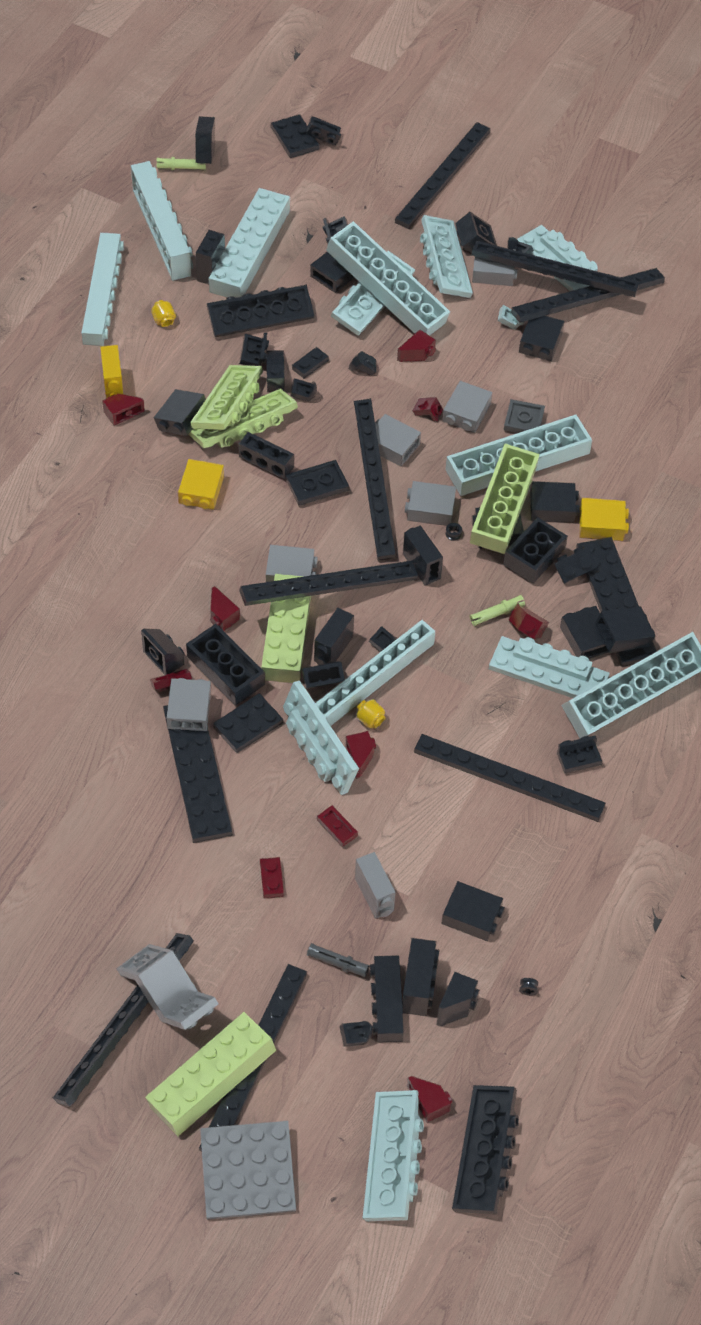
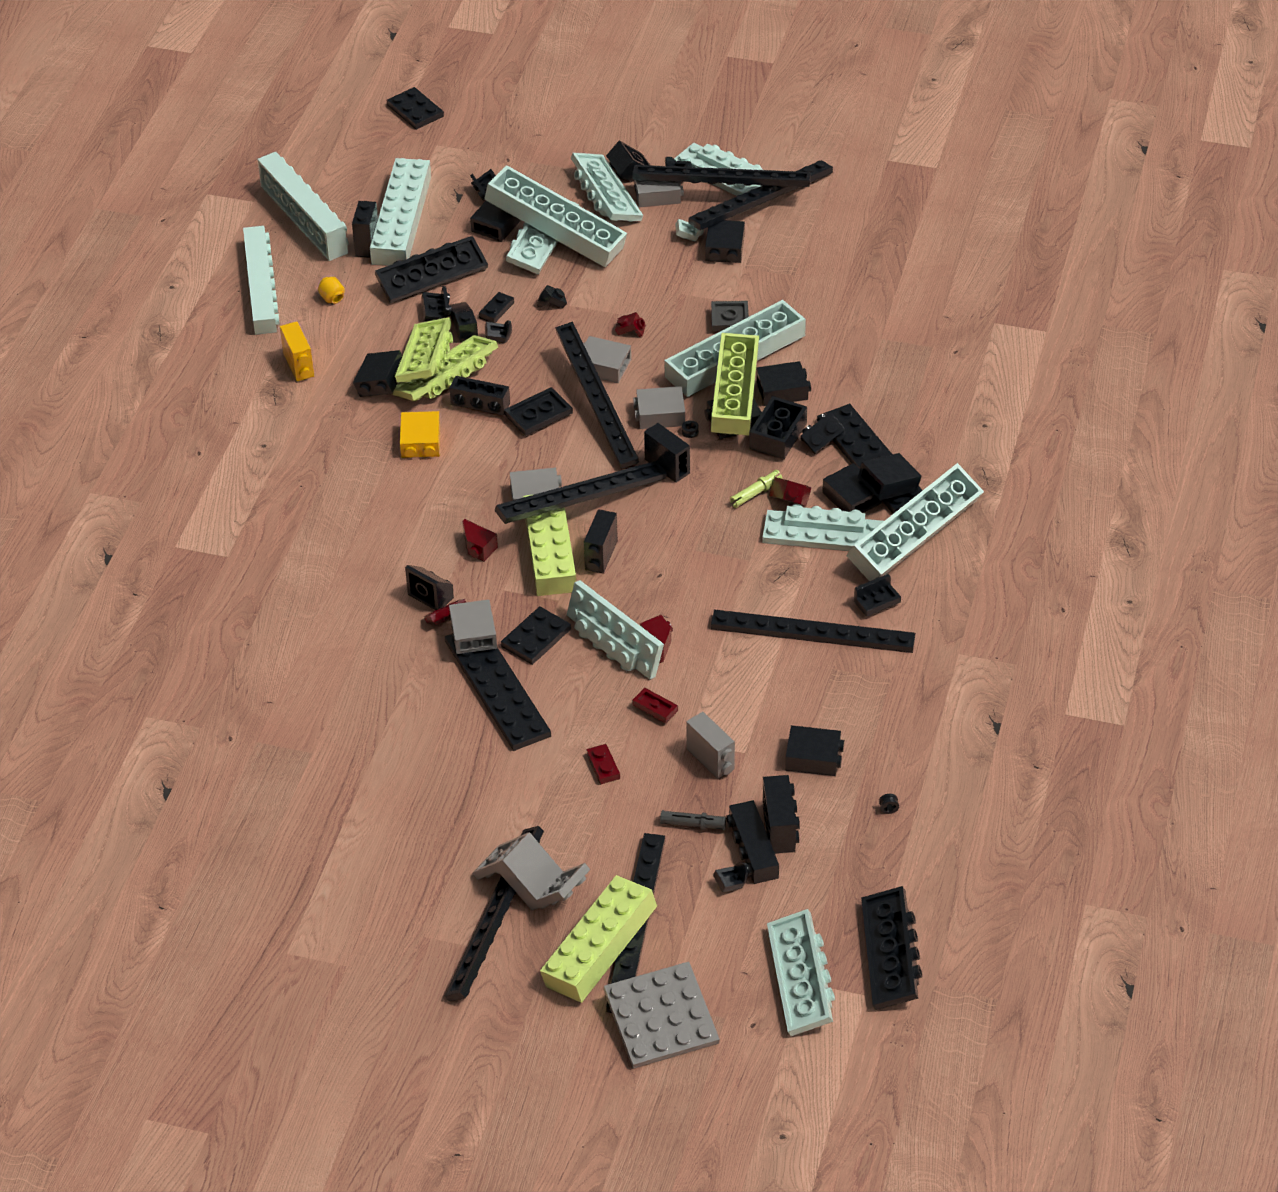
camera: 10 degrees left, 10 degrees down
(122, 407) = (316, 381): dark red slope -> none
(179, 163) = (303, 153): yellowish green pin -> none
(205, 140) = (325, 124): black brick -> none
(225, 664) = (507, 588): black brick -> none
(323, 130) = (444, 97): black bracket -> none
(323, 674) = (601, 571): black brick -> none
(370, 713) = (658, 601): yellow head -> none
(376, 672) = (655, 560): light aqua brick -> none
(382, 639) = (651, 536): black plate -> none
(417, 348) = (602, 274): dark red slope -> none
(432, 1098) = (825, 916): dark red slope -> none
(442, 175) = (578, 117): black plate -> none
(458, 999) = (824, 825): black slope -> none
(467, 406) = (669, 316): light grey brick -> none
(603, 519) = (836, 388): yellow brick -> none

